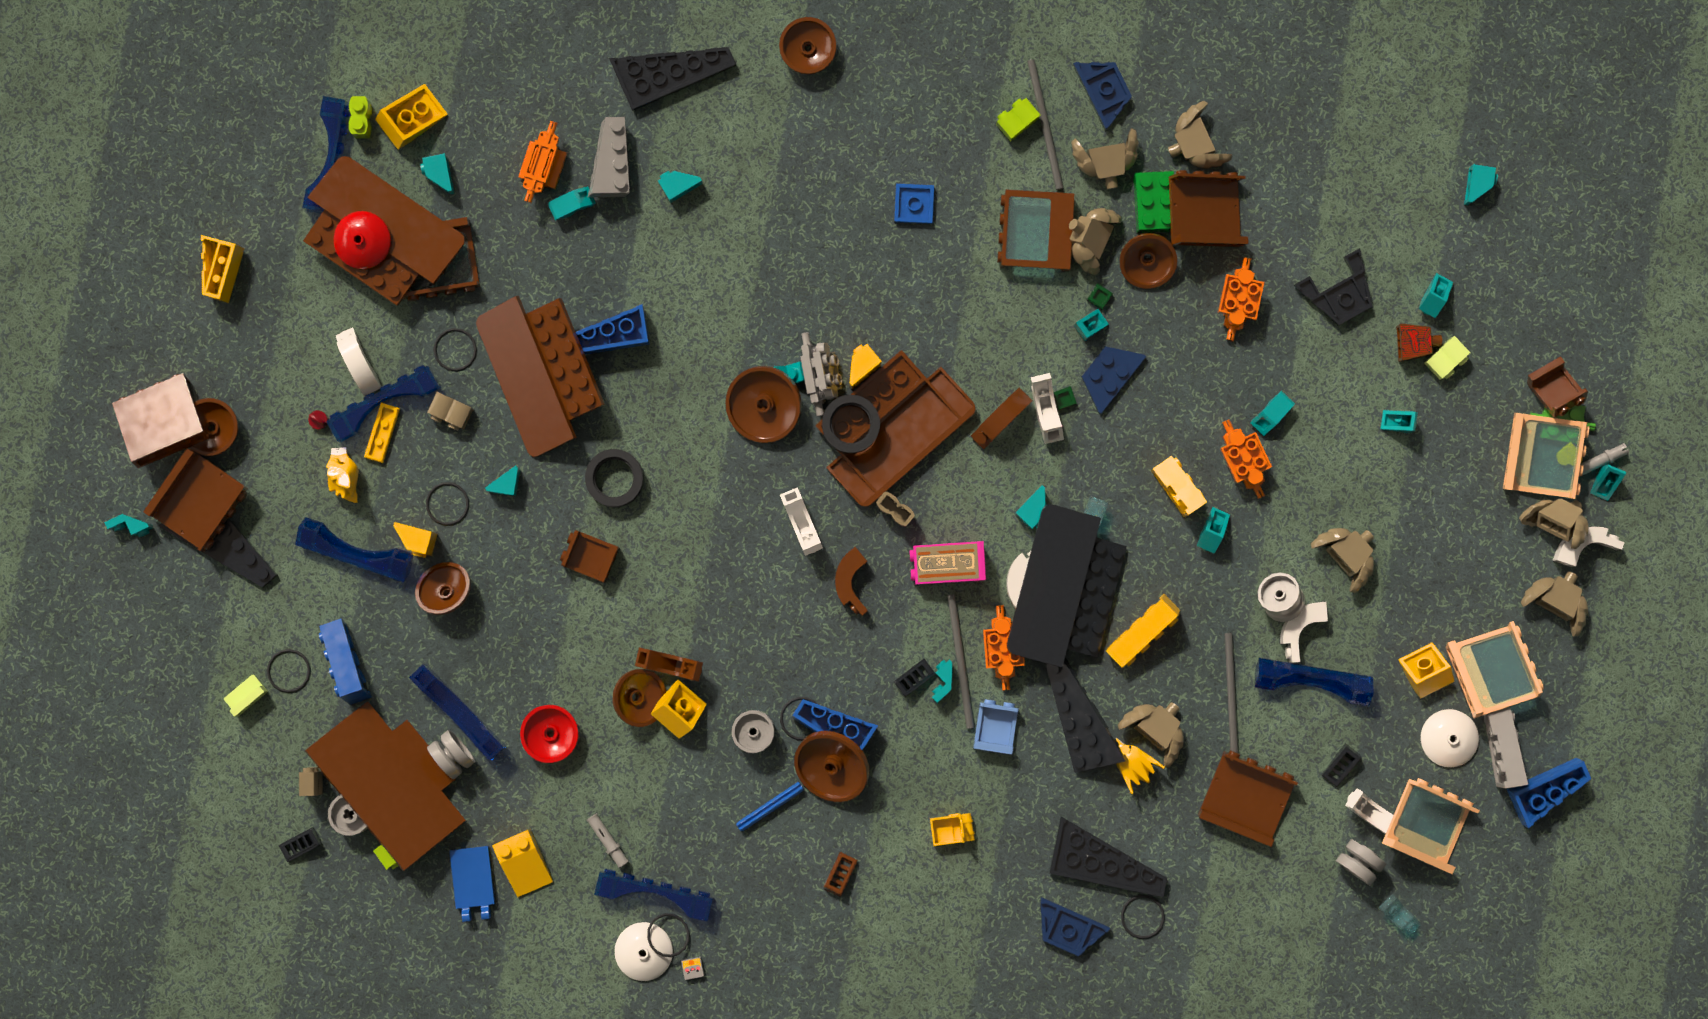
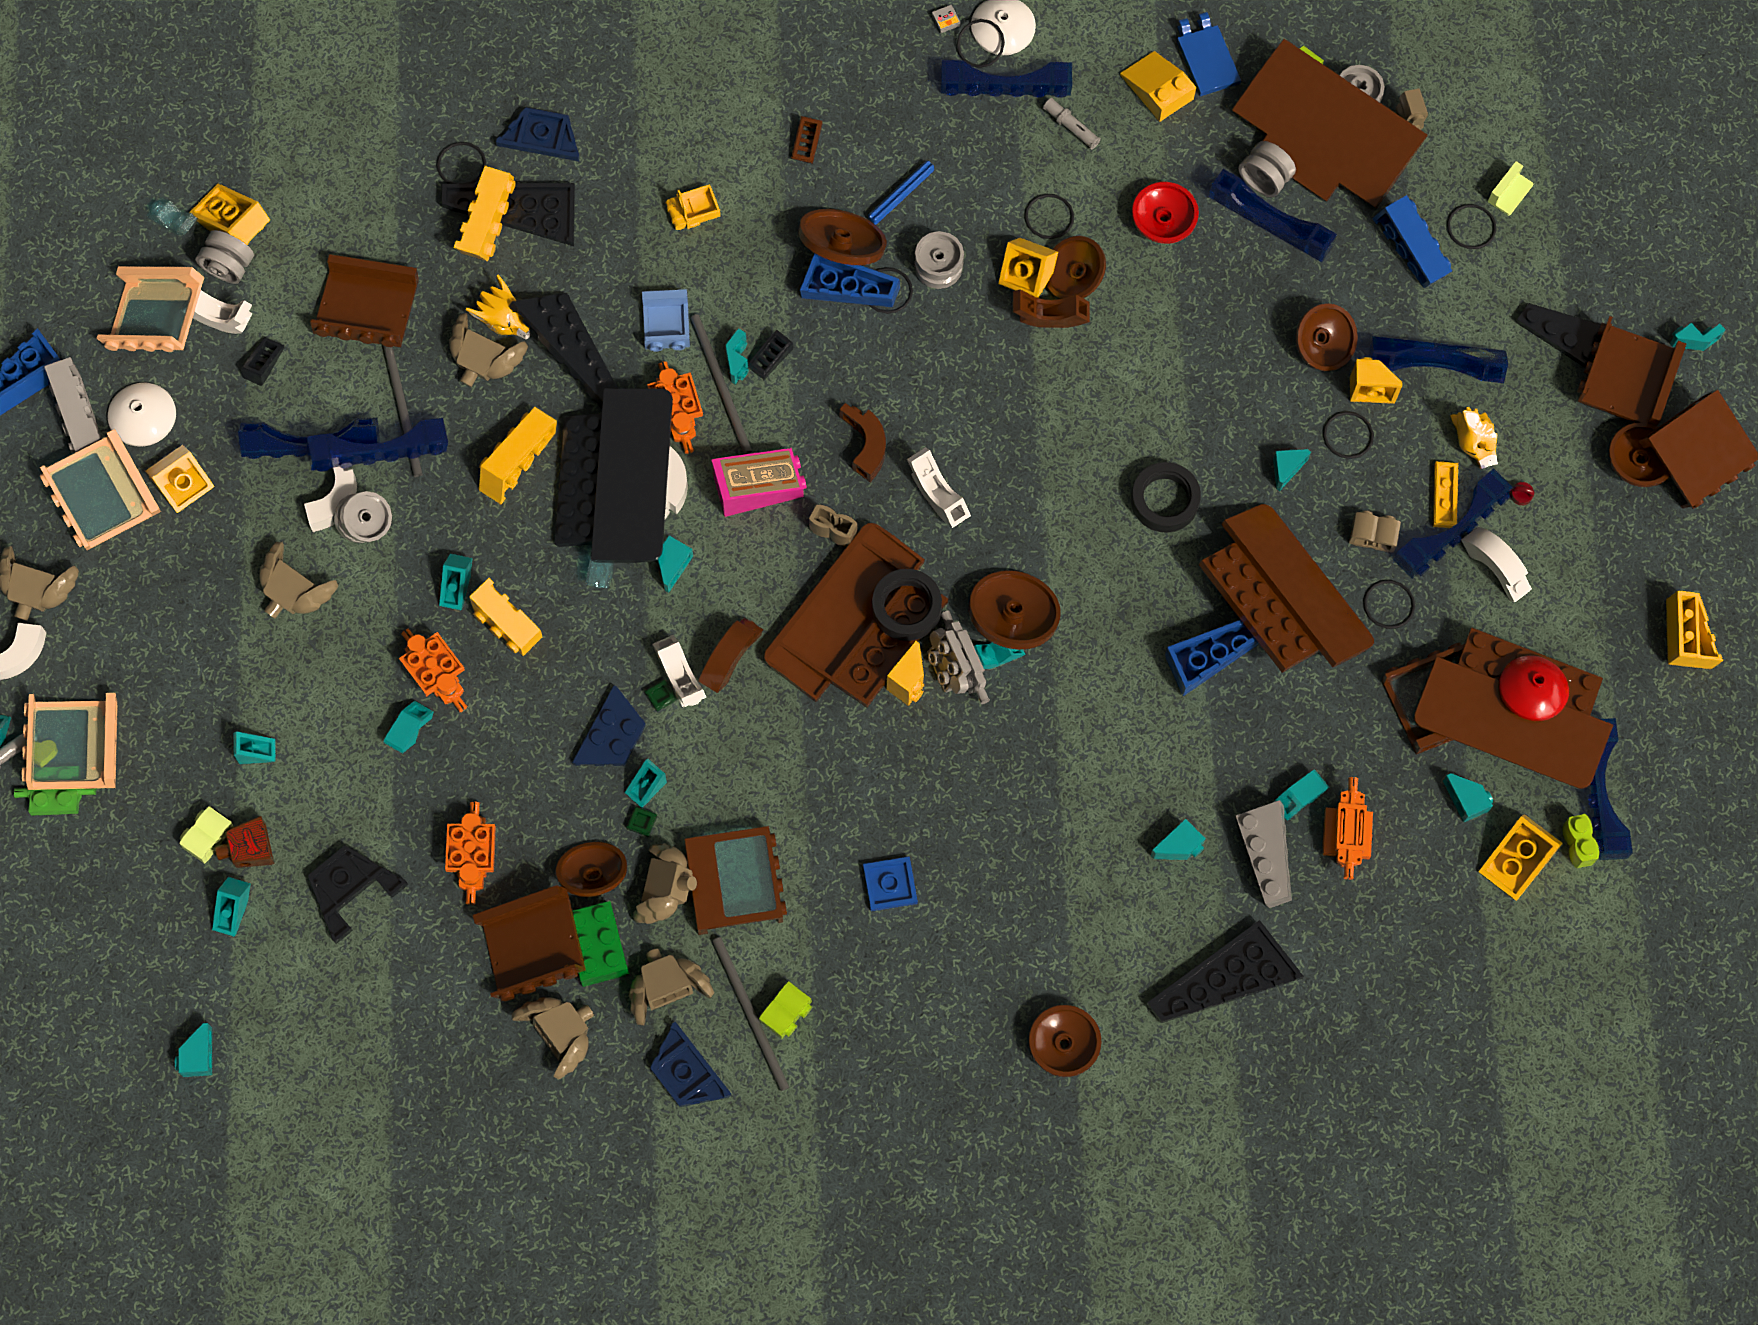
camera: 165 degrees right, 15 degrees down
(314, 838) = (1395, 68): black slope -> none
(589, 556) = (1171, 409): reddish brown panel -> none
(666, 765) = (1053, 196): none -> black piece
(1132, 853) = (486, 214): none -> yellow wedge
(1299, 658) = (329, 451): none -> clear blue arch
(1350, 906) = (230, 213): none -> yellow slope
(1556, 388) = (66, 822): reddish brown panel -> none
(1559, 519) = (43, 671): dark tan torso -> none

